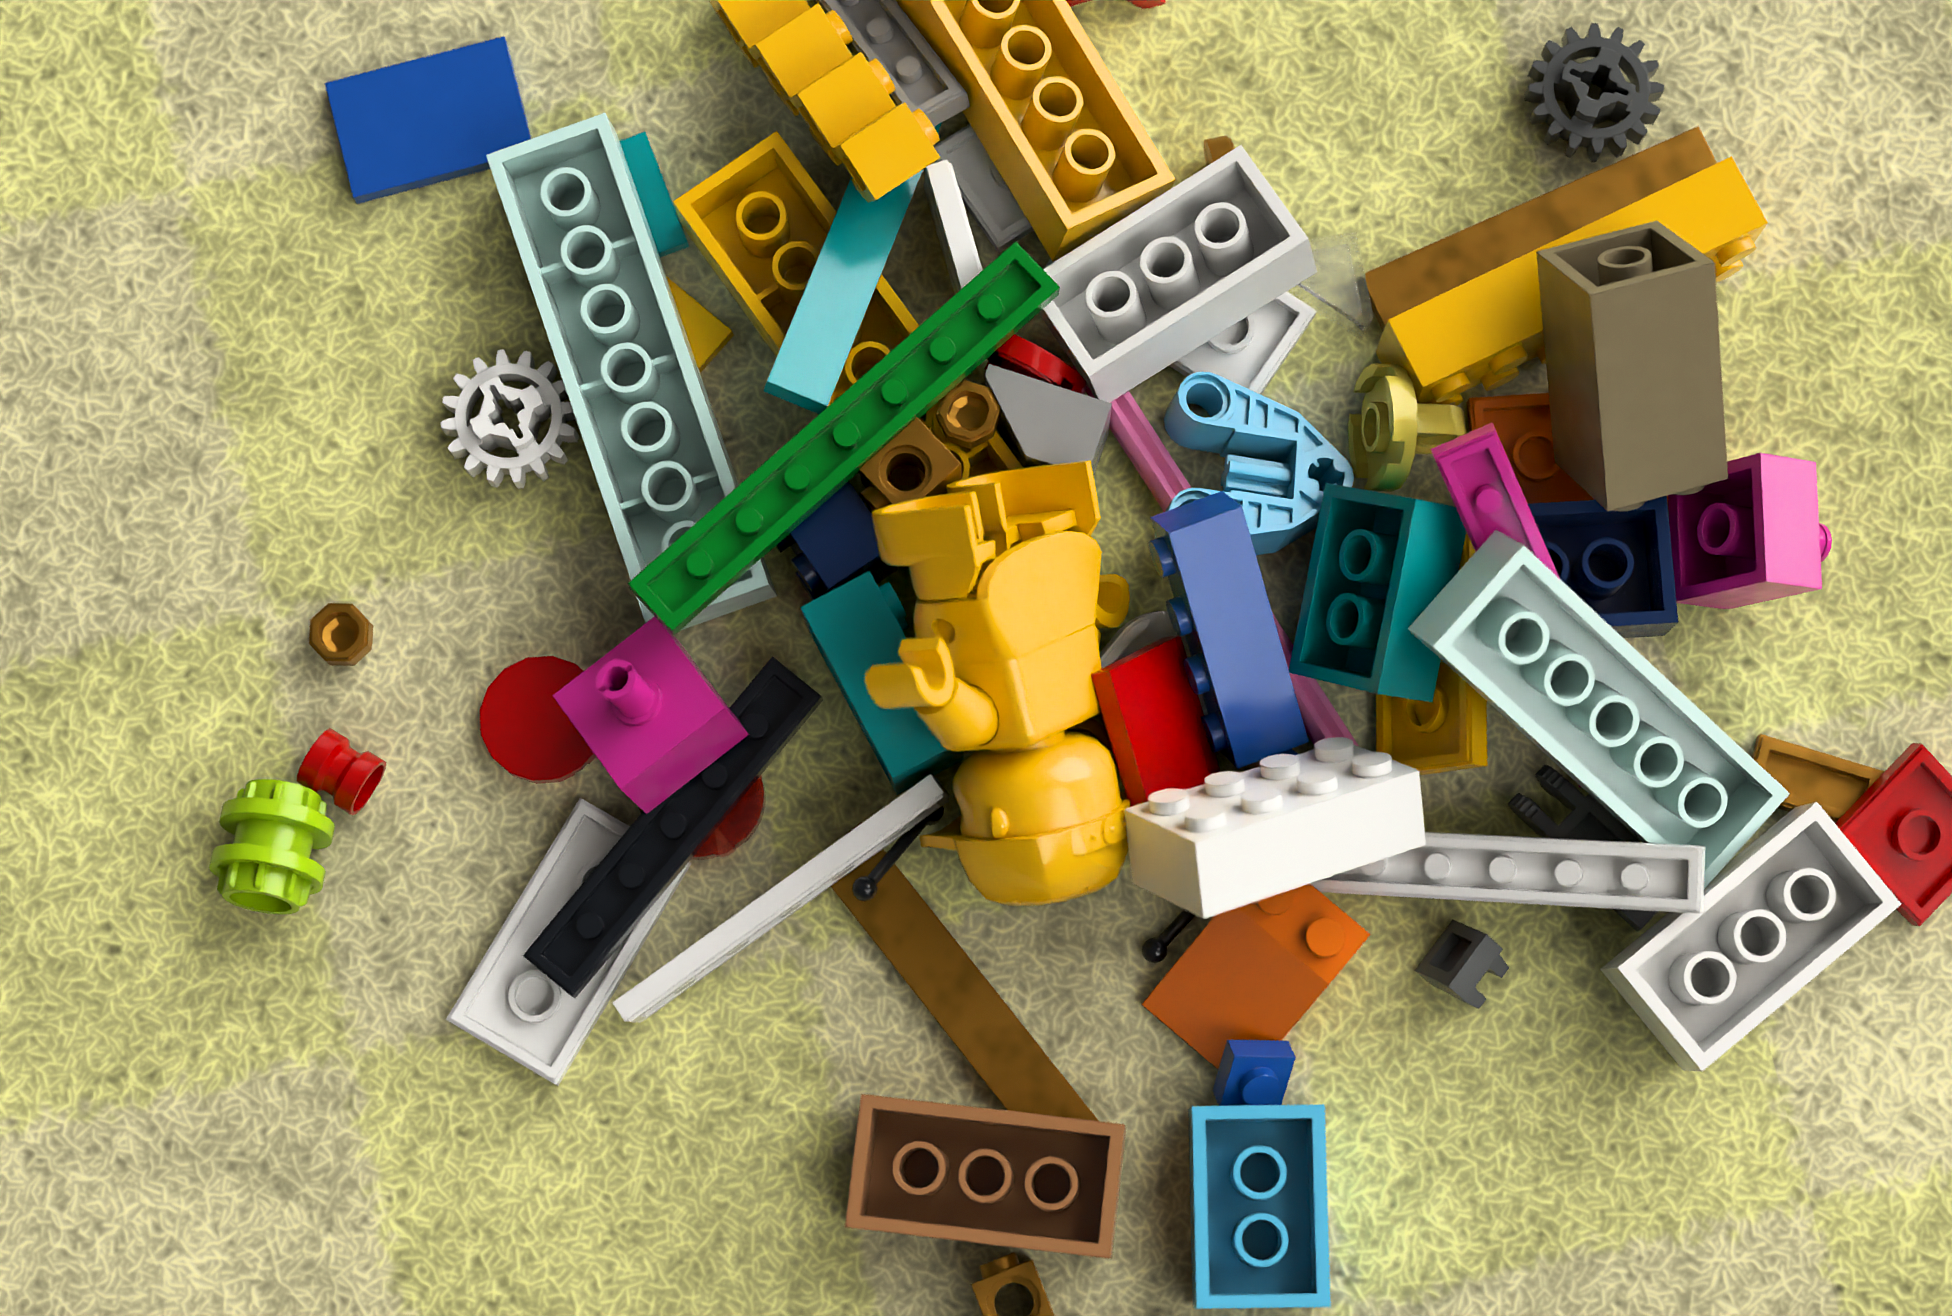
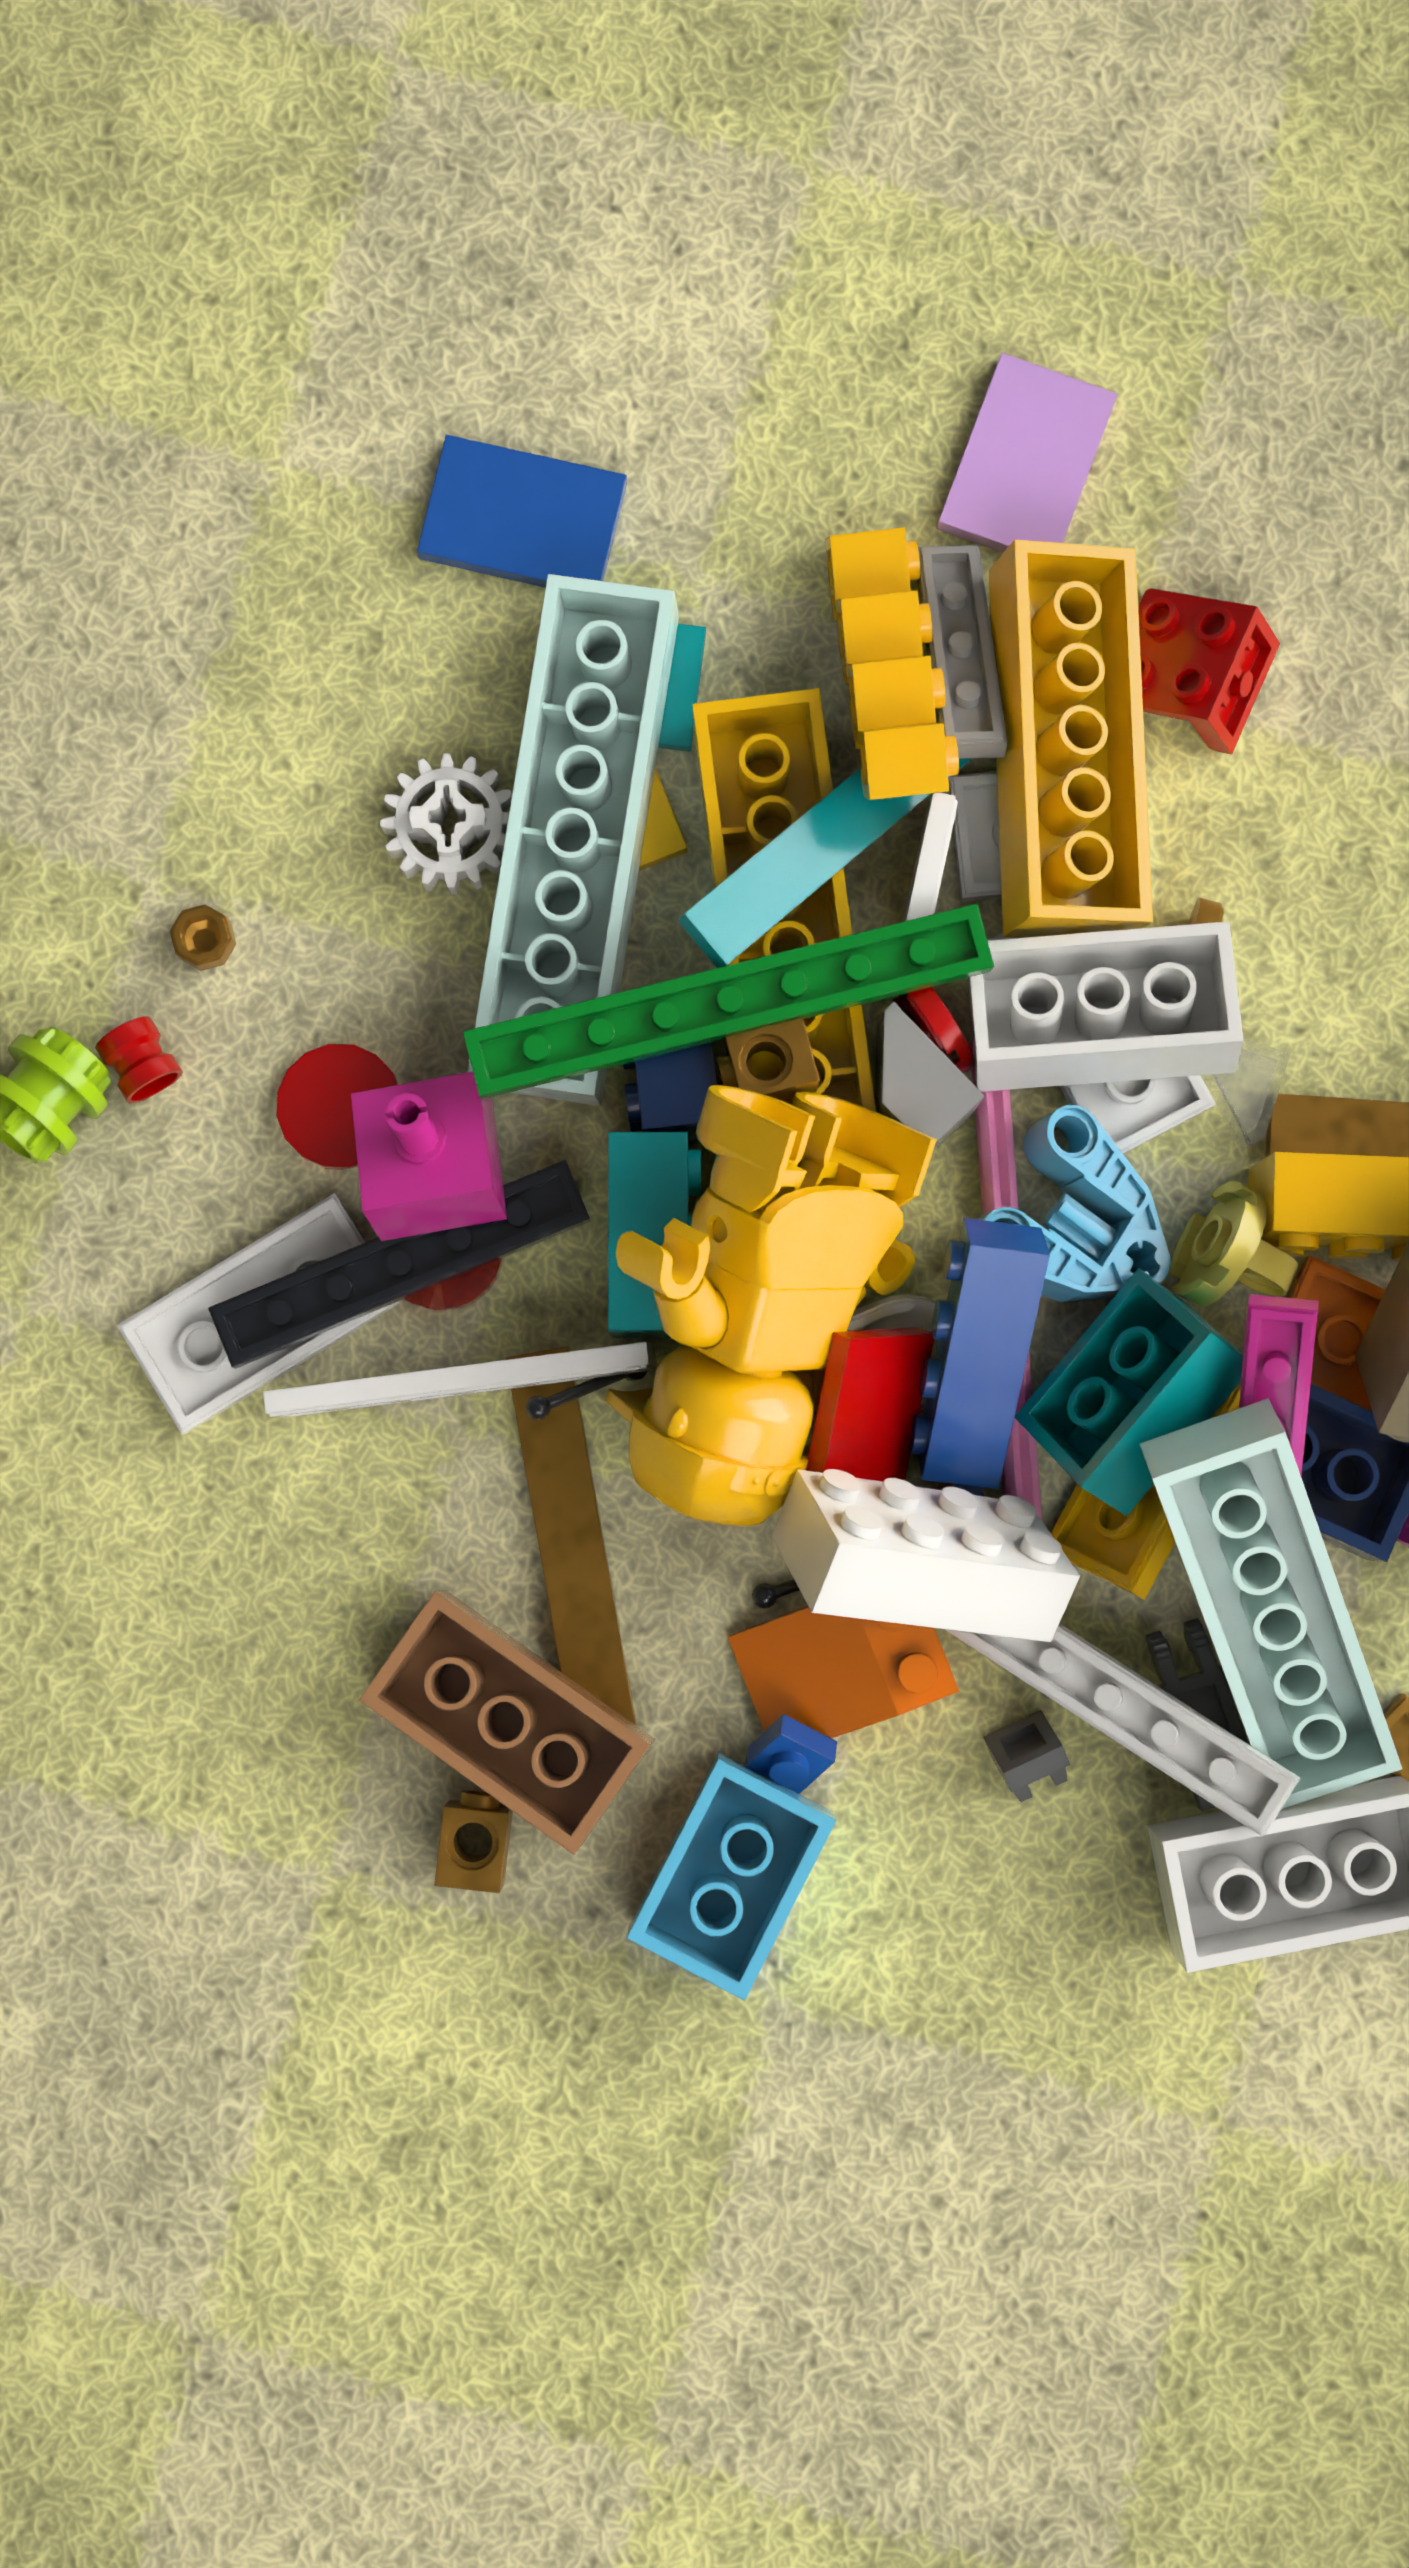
camera: 25 degrees right, 5 degrees up
(968, 414) = (852, 1037): pearl gold tile -> none

